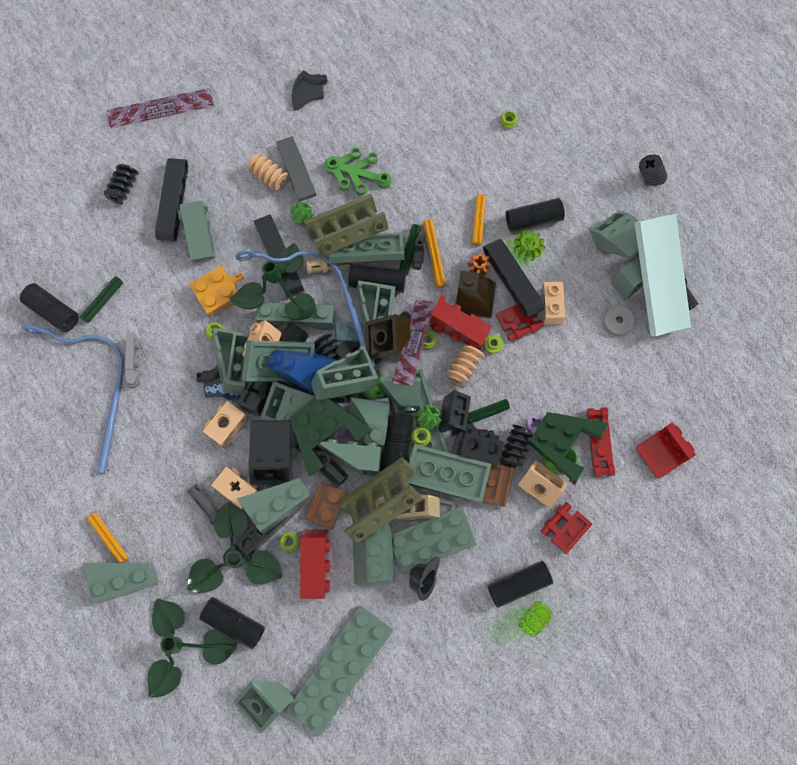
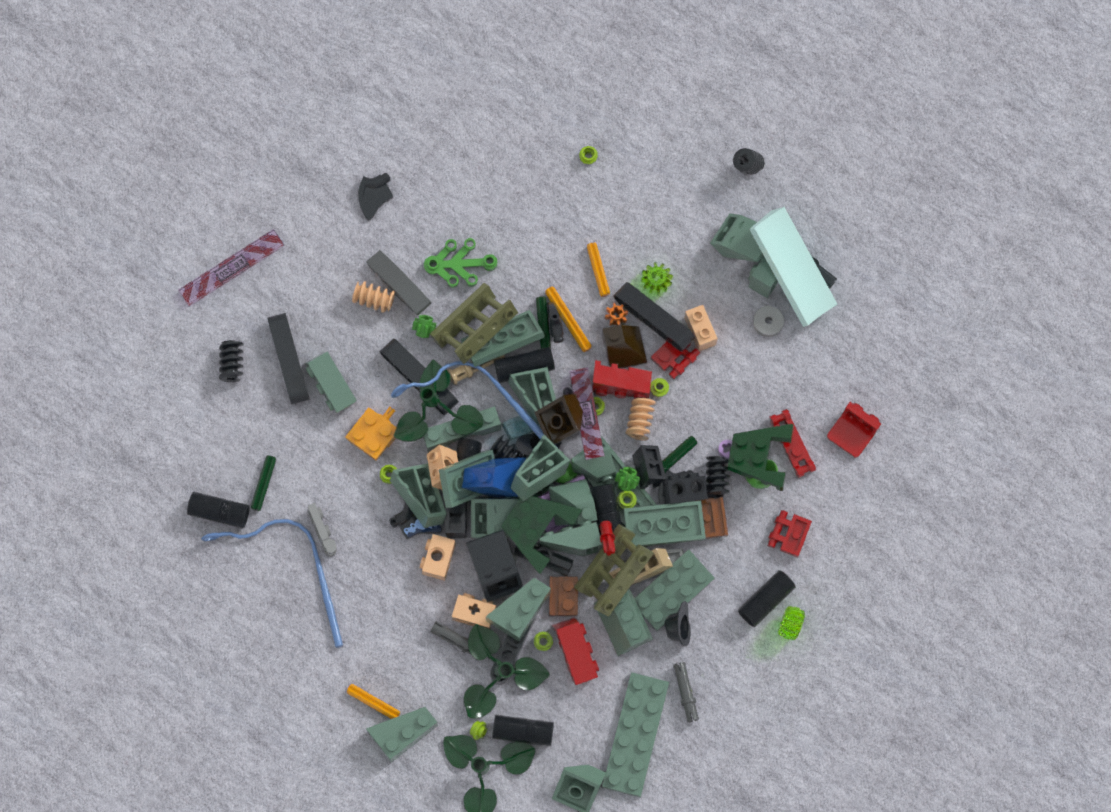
camera: 25 degrees left, 0 degrees up
(191, 605) = (478, 730): none -> lime plate
(384, 466) = (607, 537): none -> red axle
(404, 656) = (686, 692): none -> dark grey pin
(538, 213) = (651, 246): black piece -> none
(553, 484) = (763, 498): light nougat brick -> none

